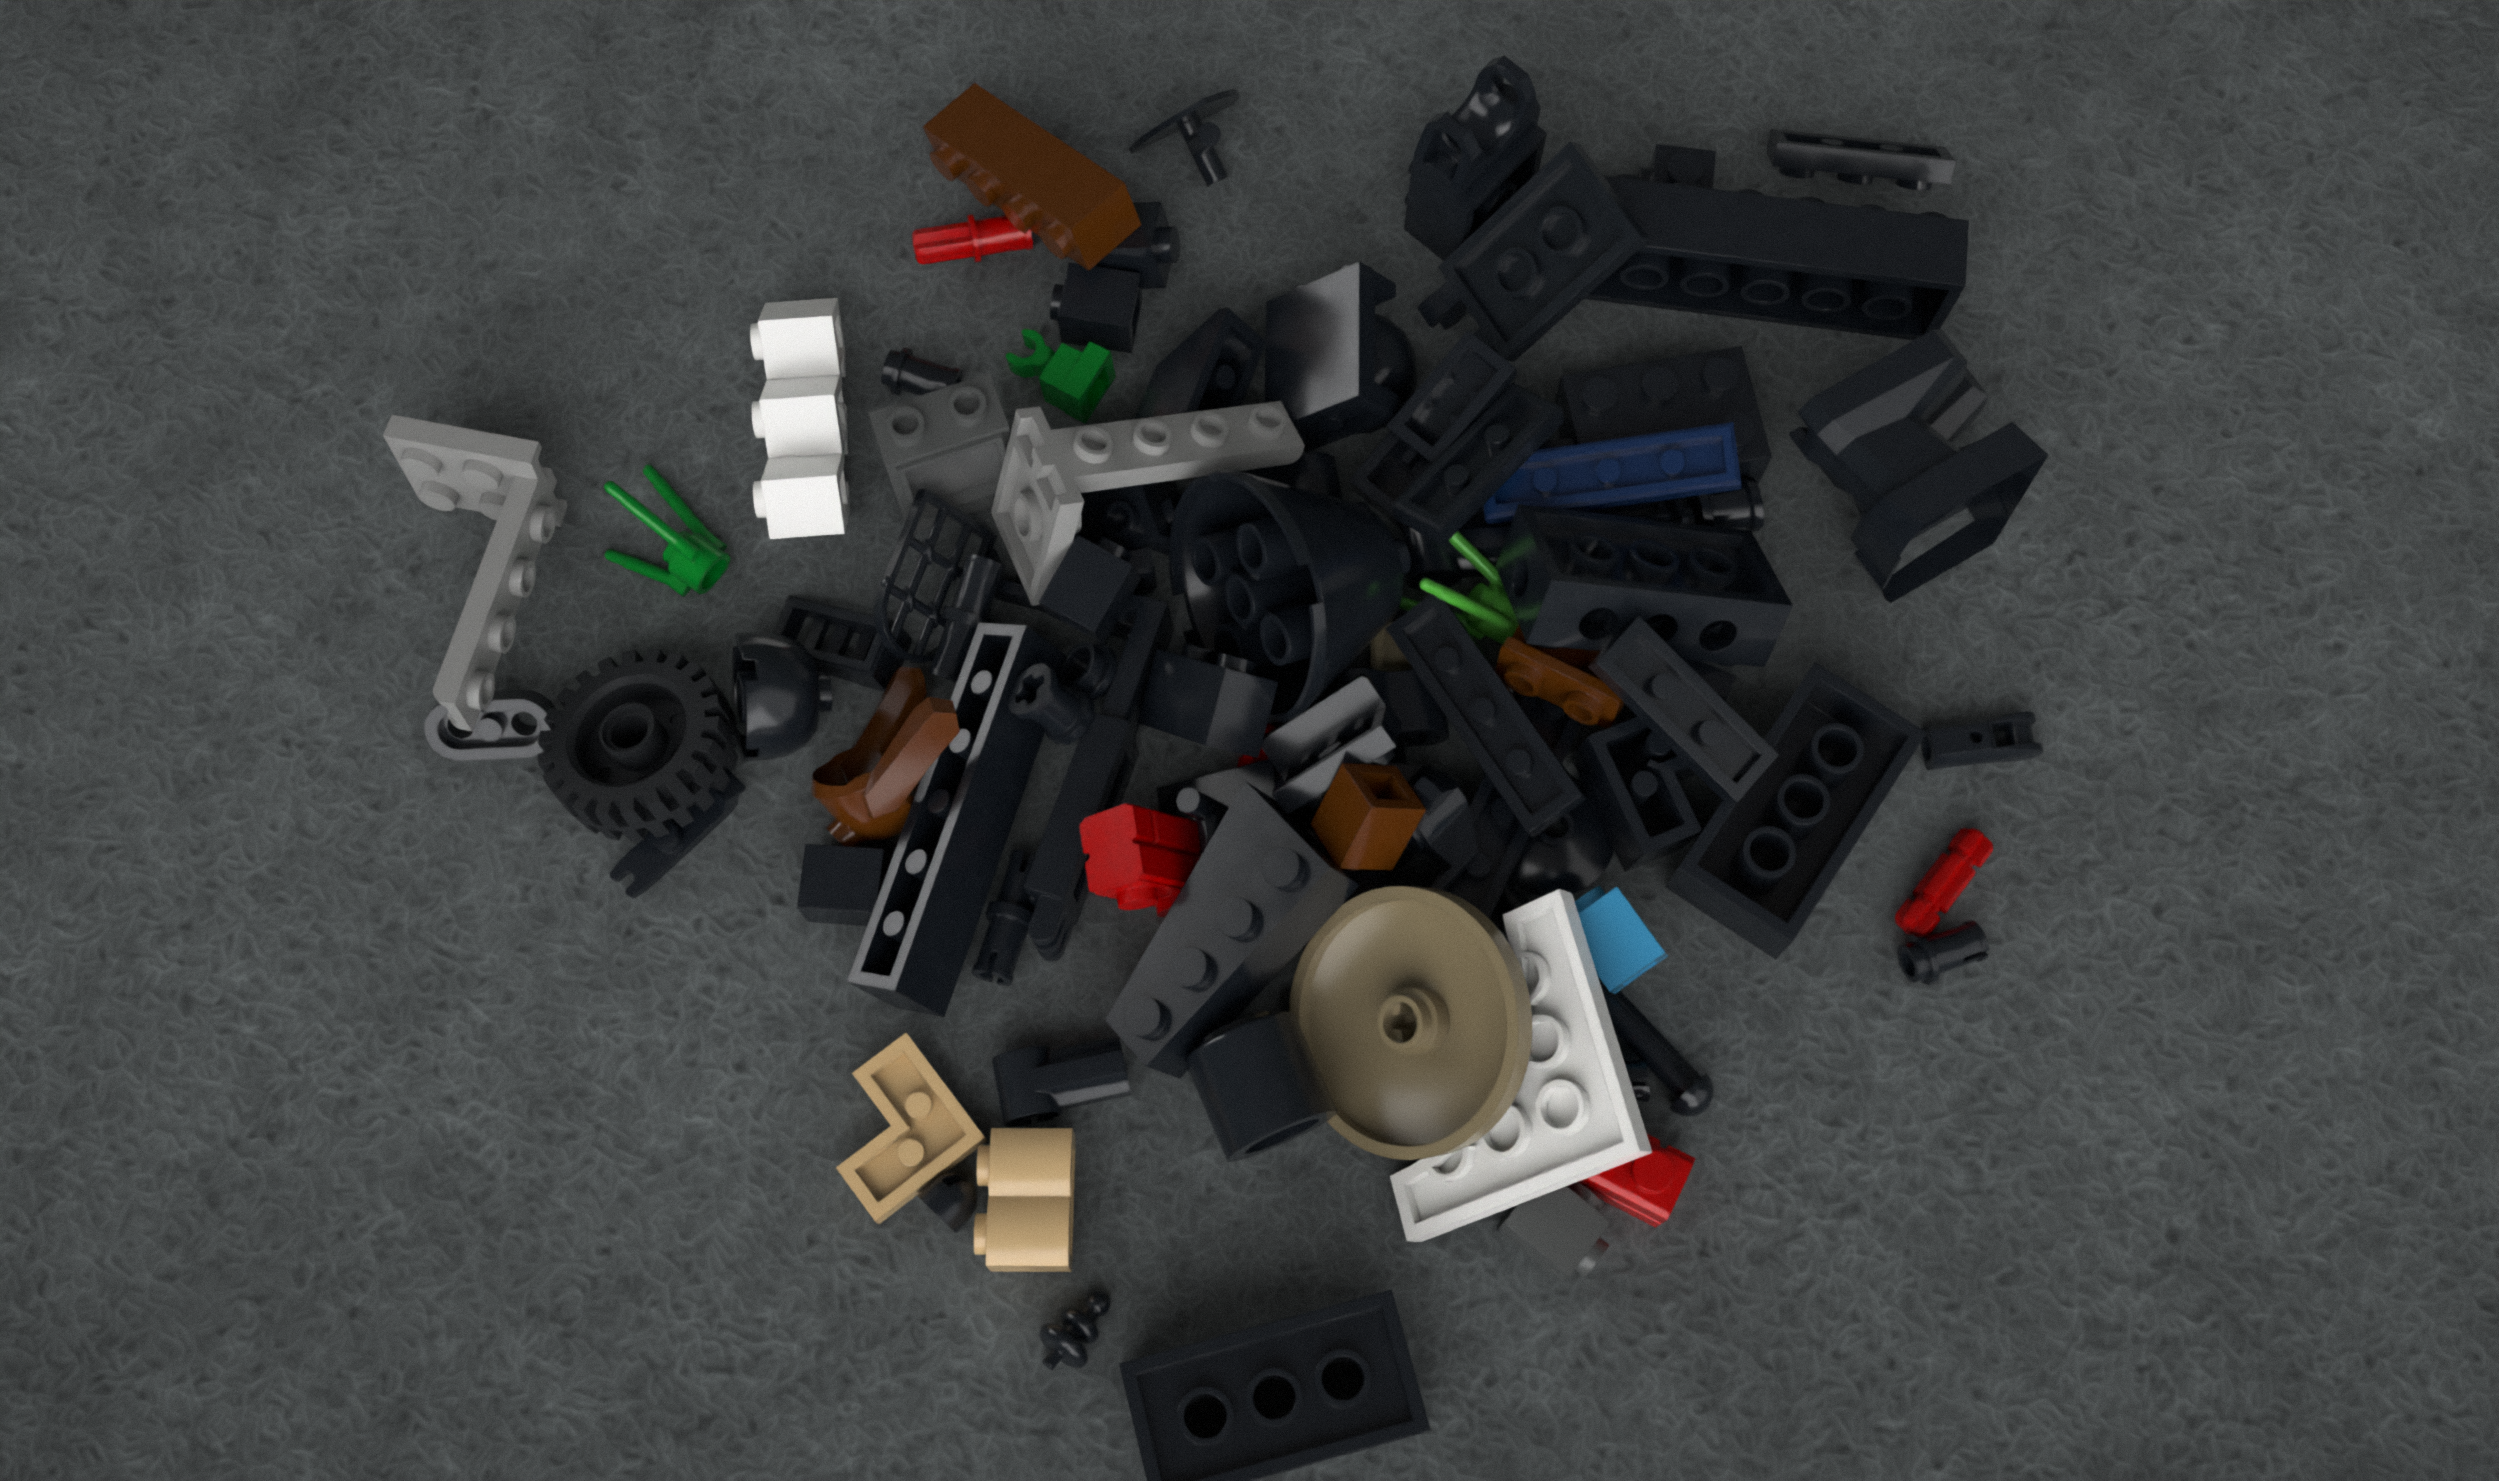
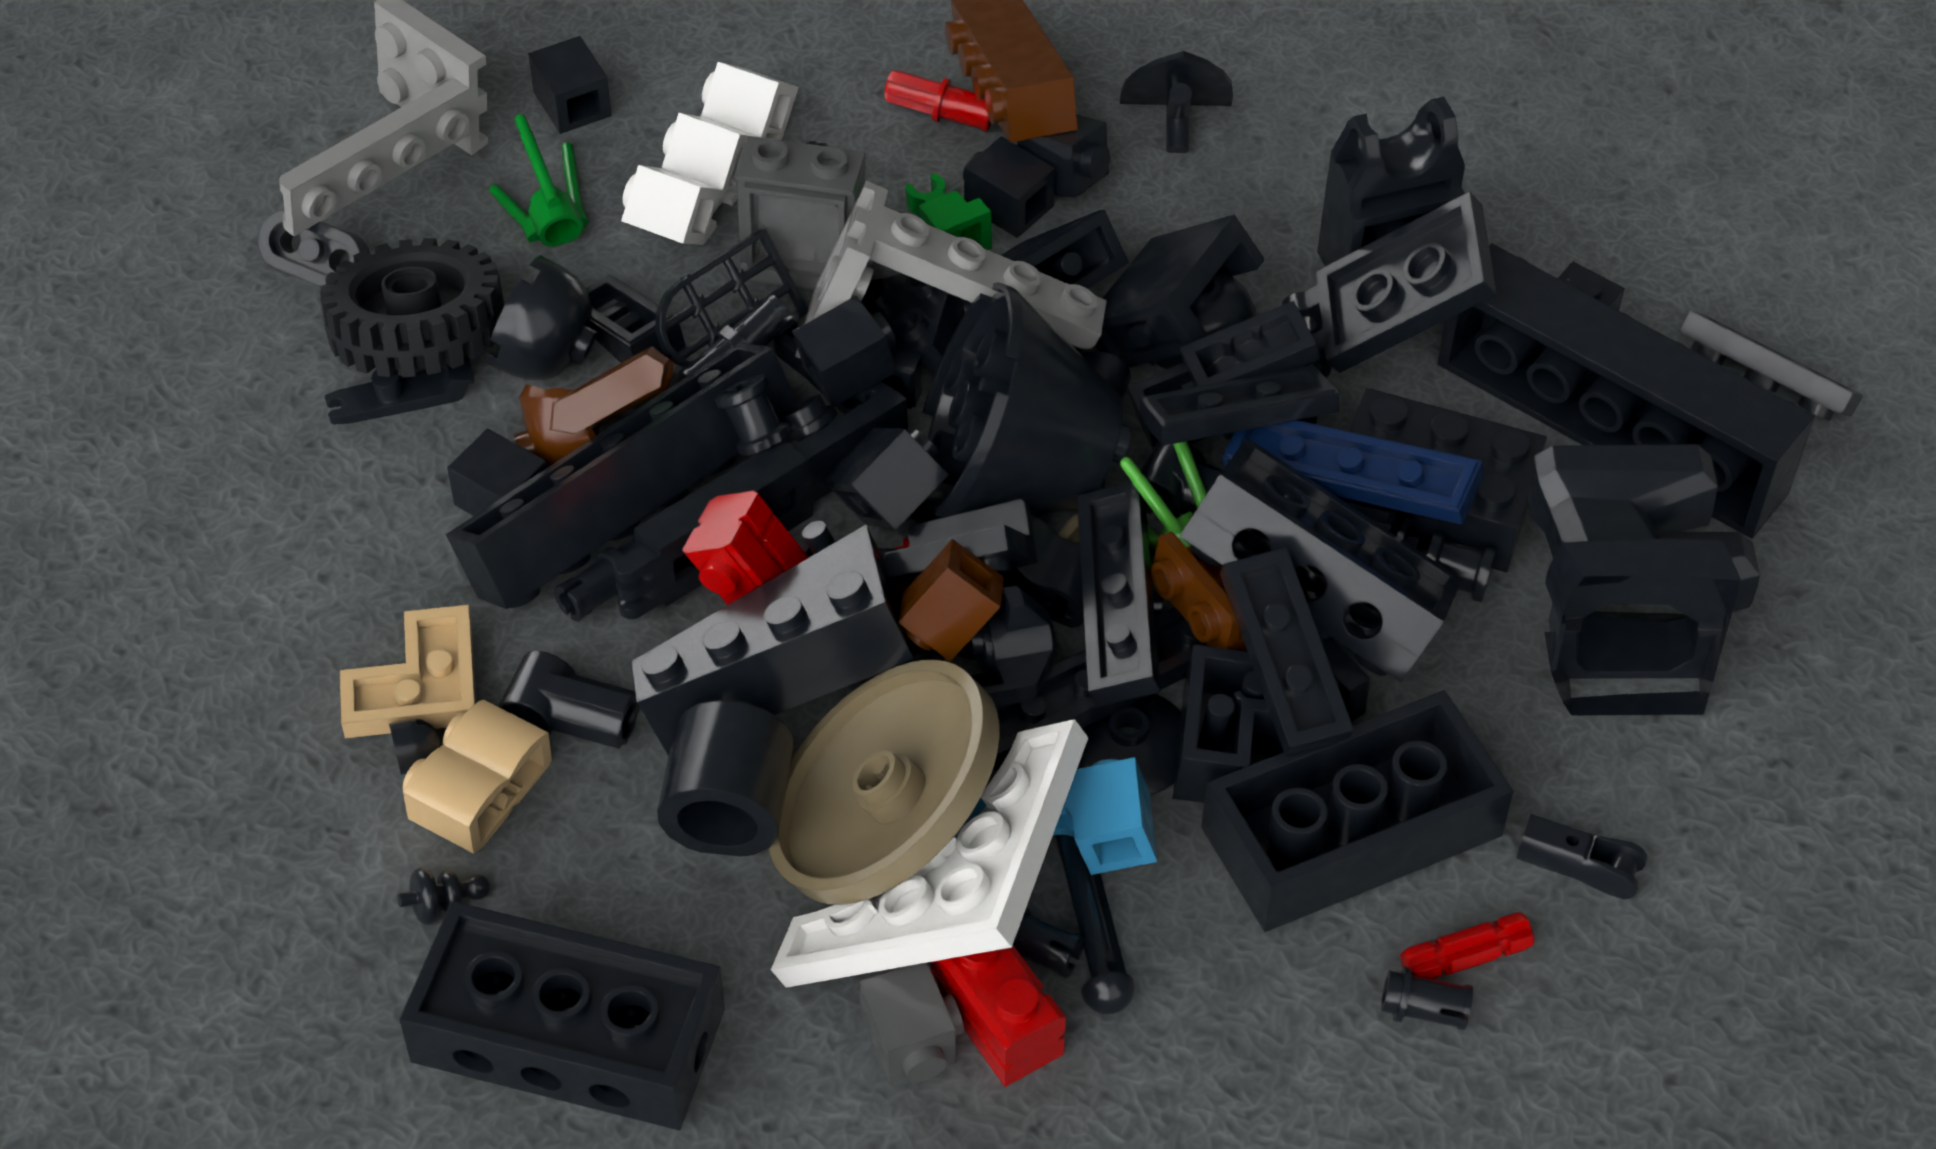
camera: 30 degrees right, 20 degrees down
(611, 403) = (570, 84): none -> black brick

